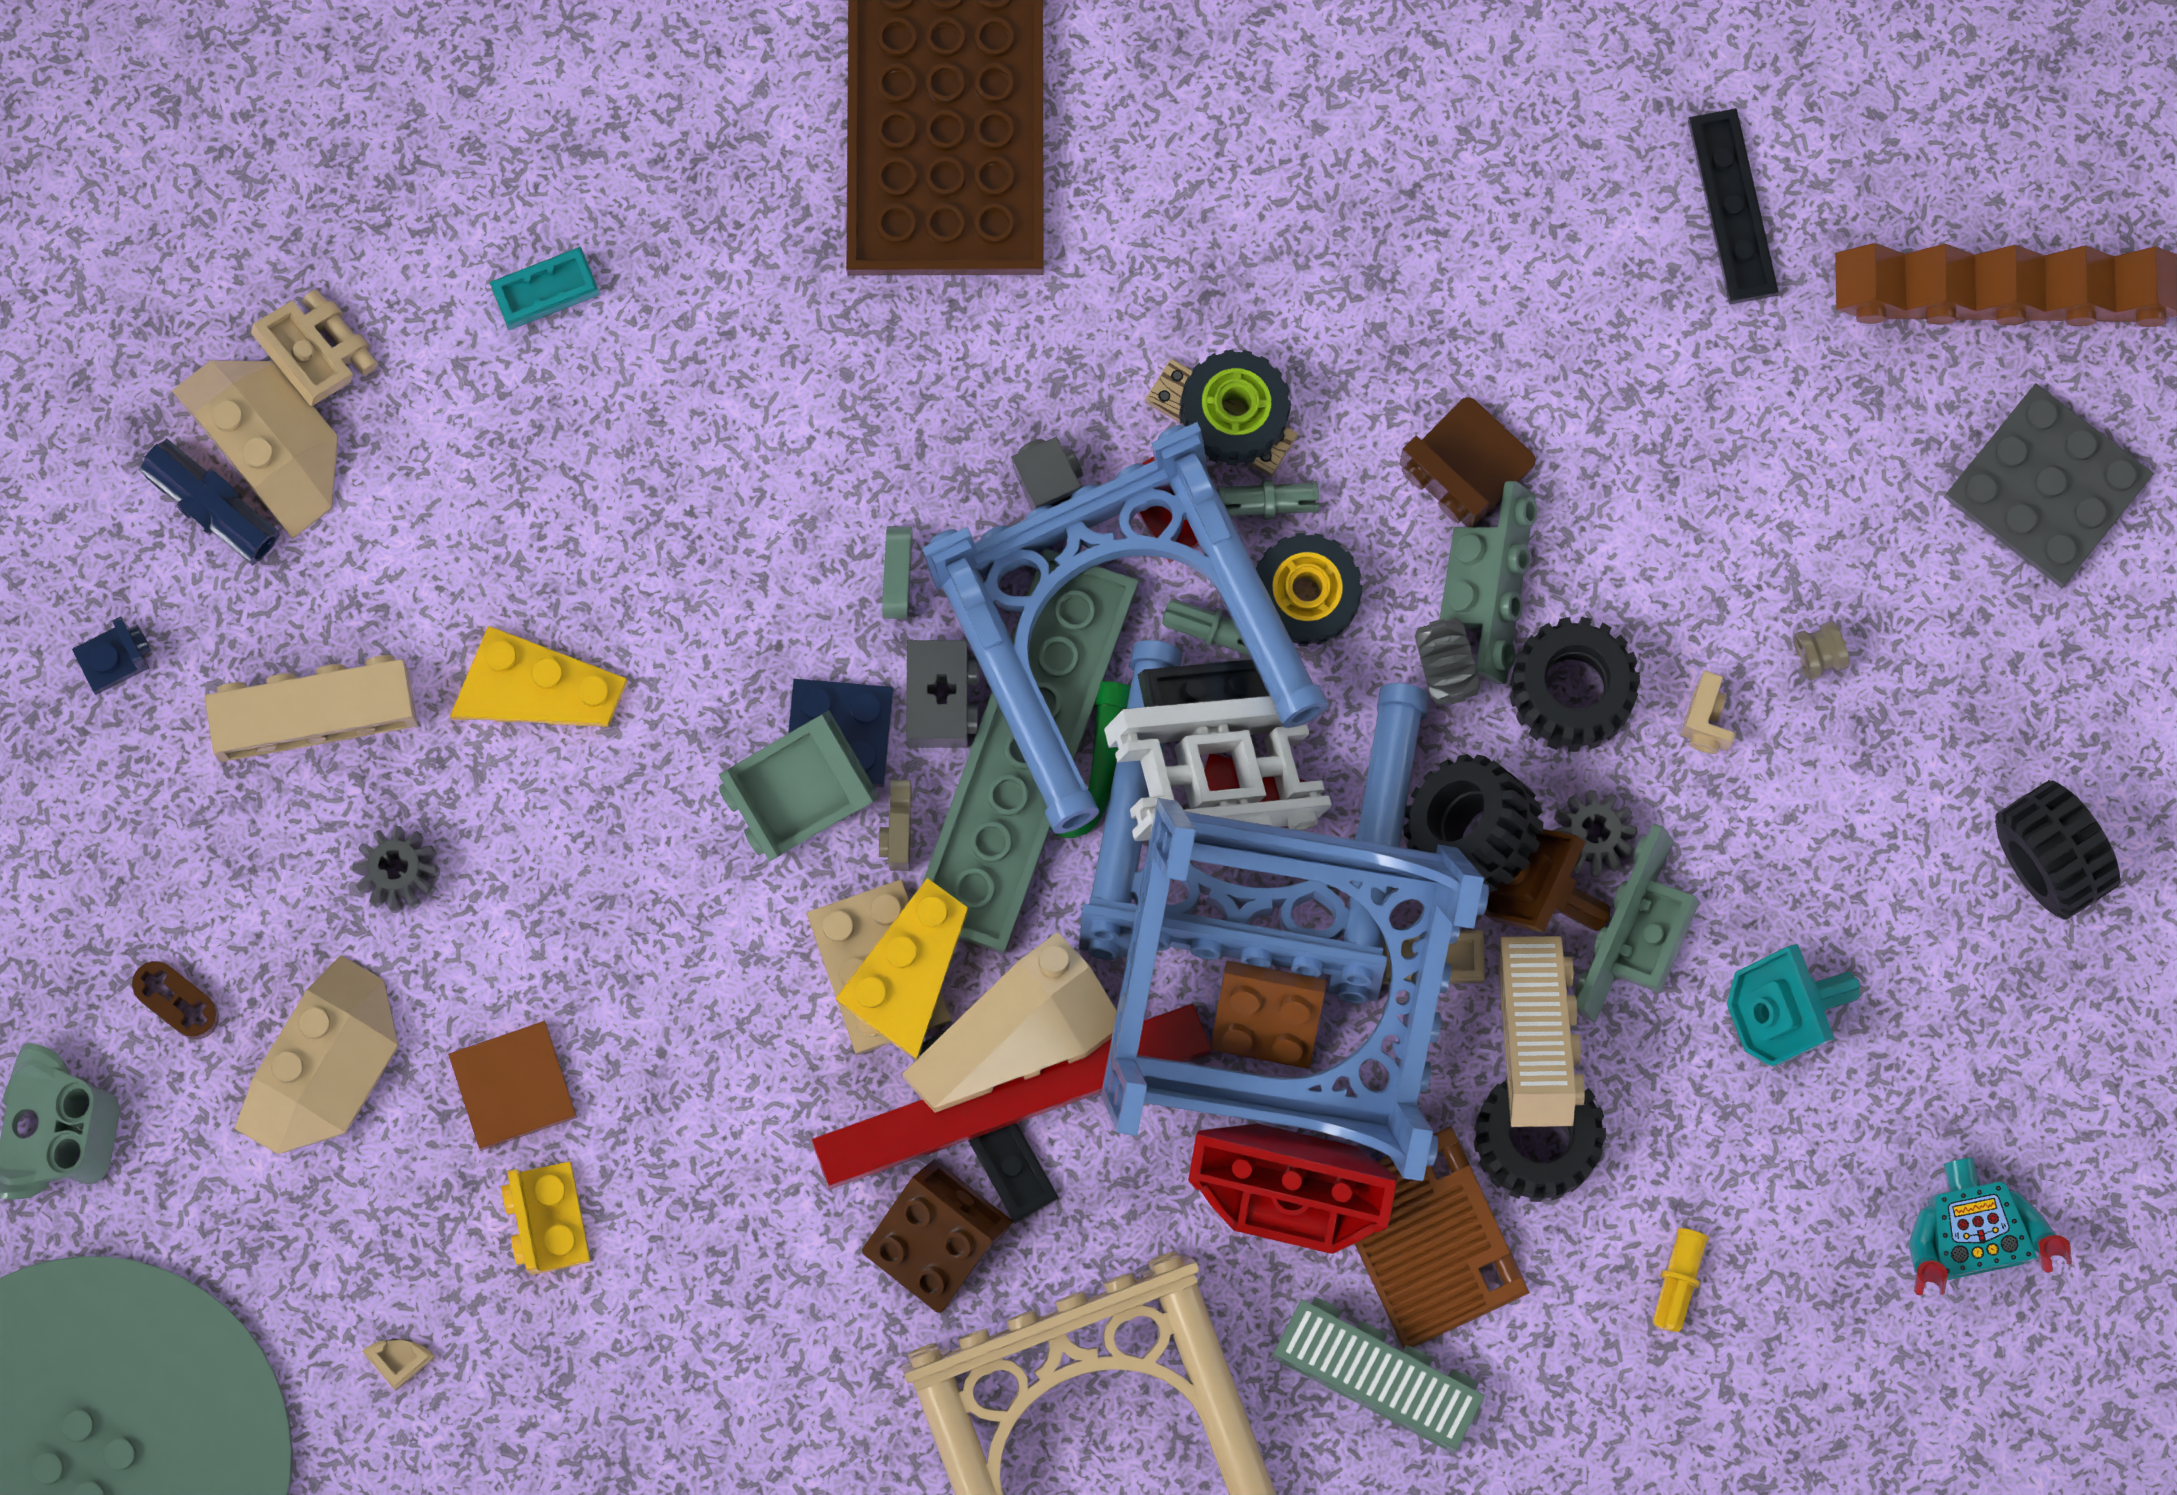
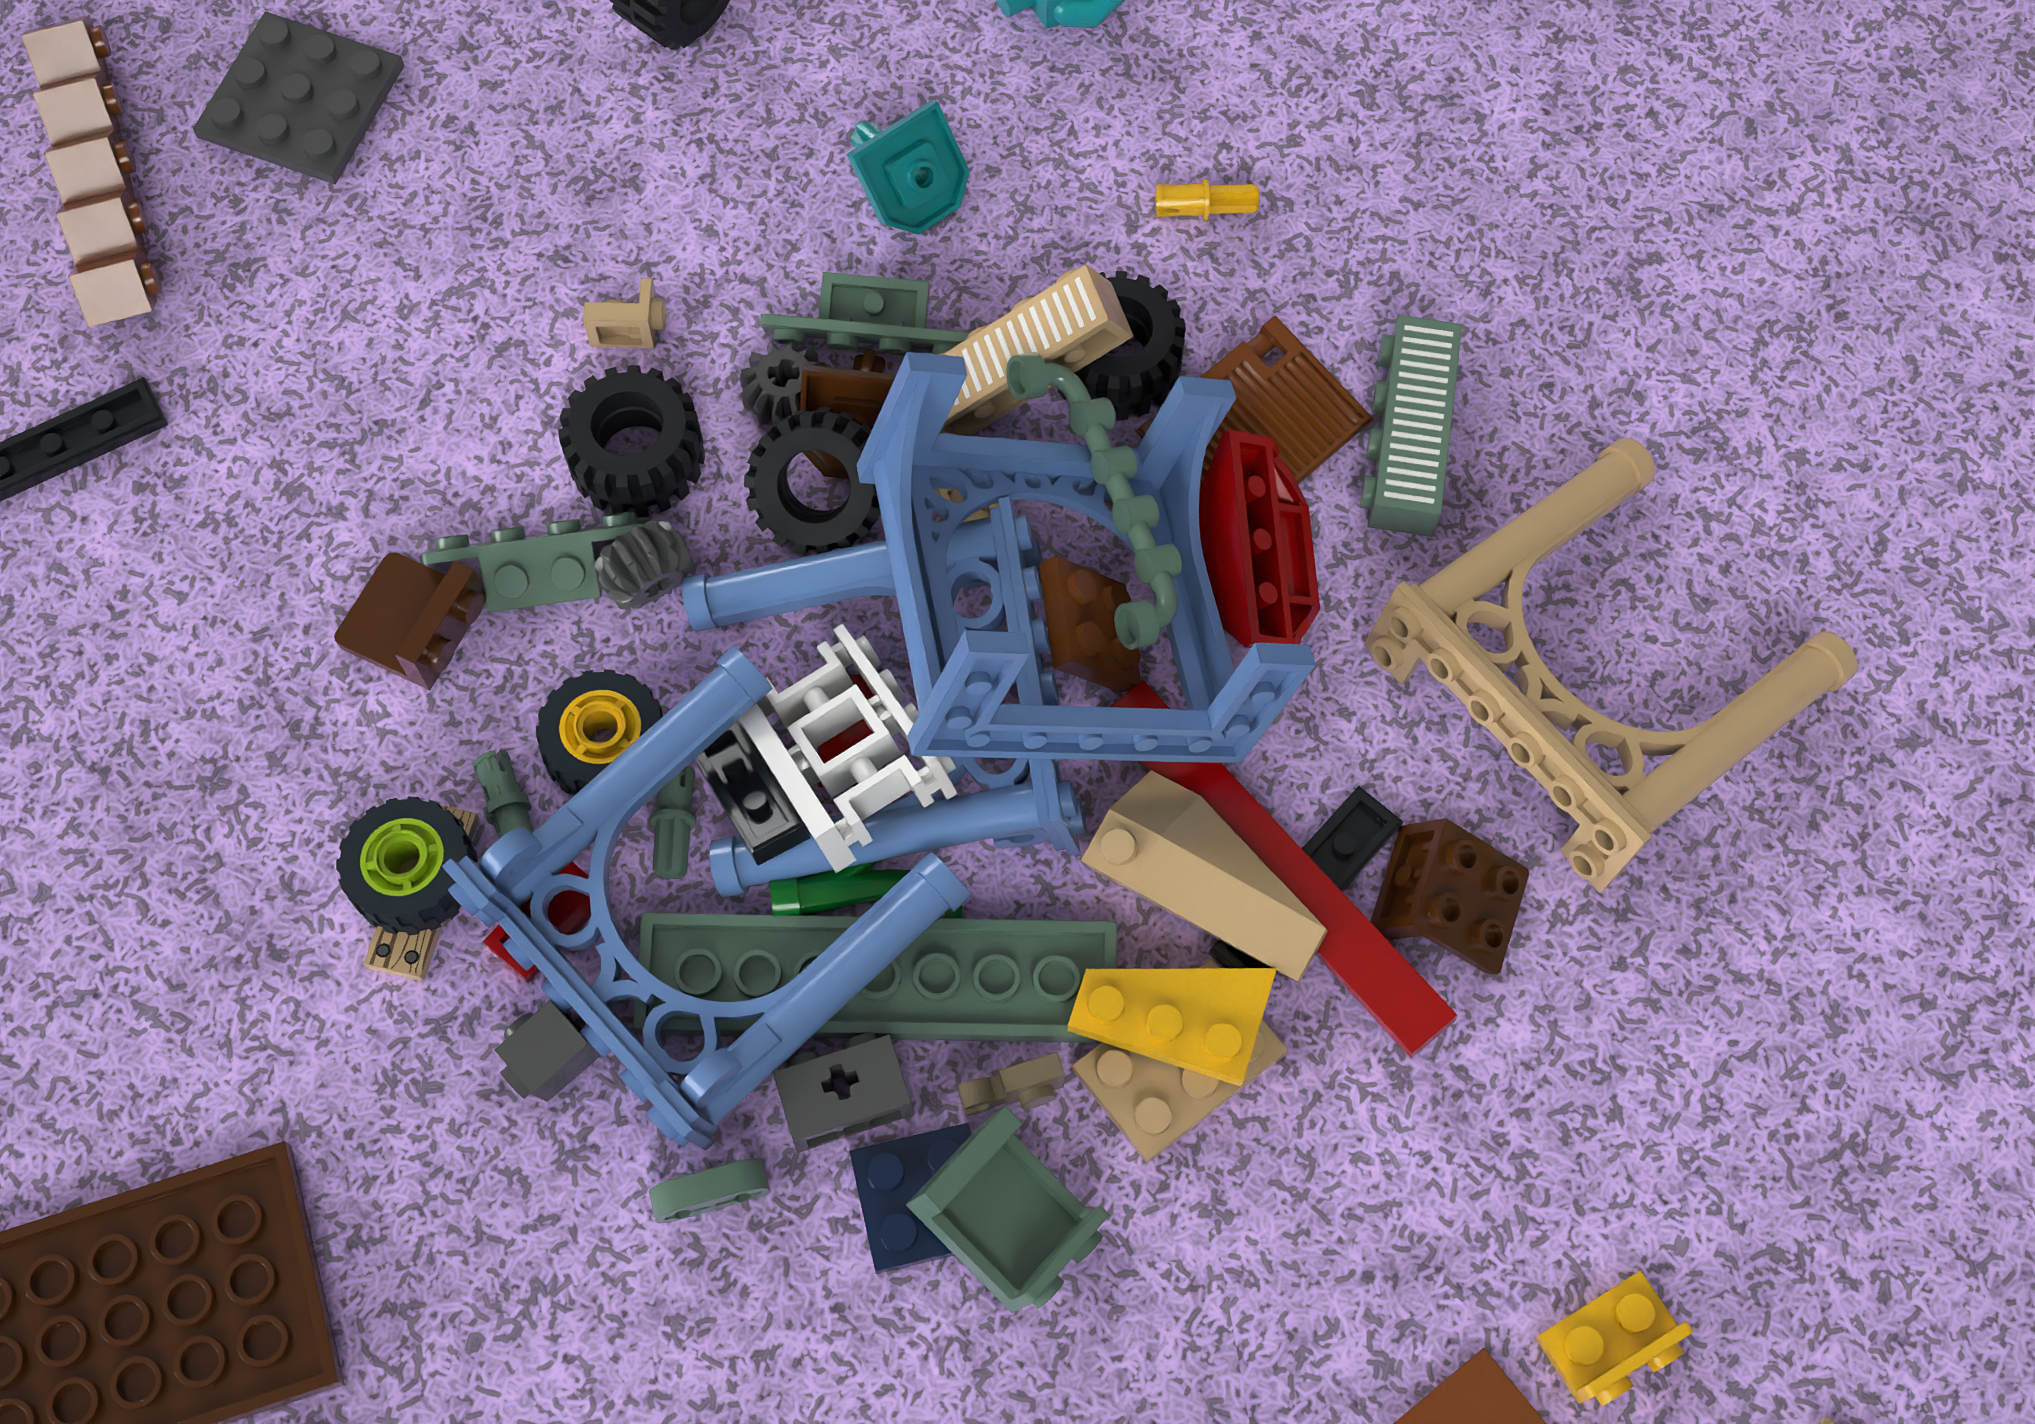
camera: 110 degrees left, 10 degrees down
(1391, 1066) = (1137, 621): none -> sand green bar
(1821, 650) = (528, 237): dark tan wheel -> none

